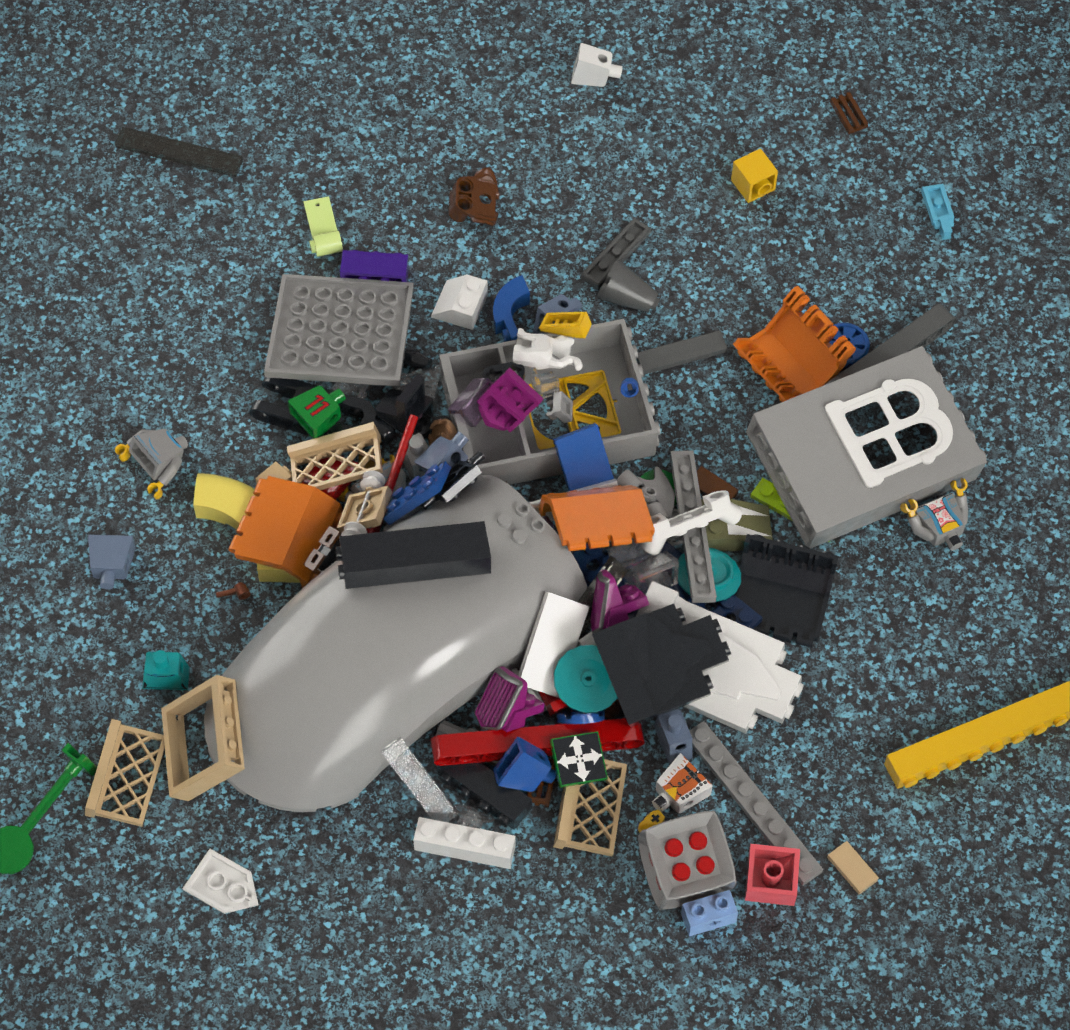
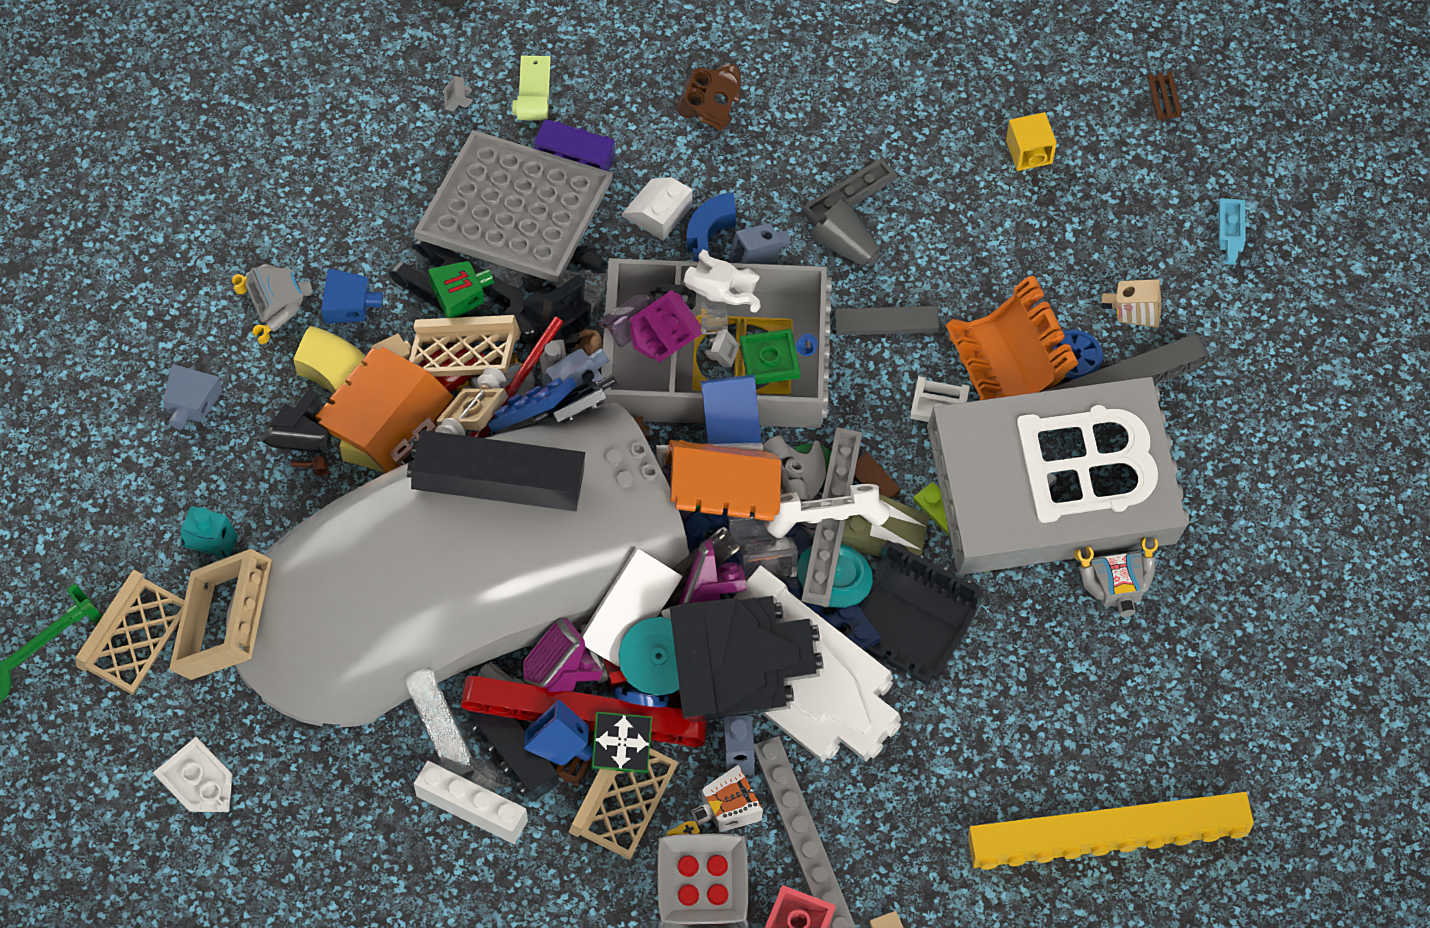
camera: 15 degrees right, 0 degrees up
(215, 563) = (298, 428): none -> black piece
(221, 441) = (347, 297): none -> blue torso
(258, 247) = (455, 94): none -> light grey tile
(567, 324) = (760, 258): yellow slope -> none
(601, 404) = (770, 356): none -> green tile
(740, 415) = (924, 402): none -> white plate
(882, 288) = (1136, 302): none -> tan torso

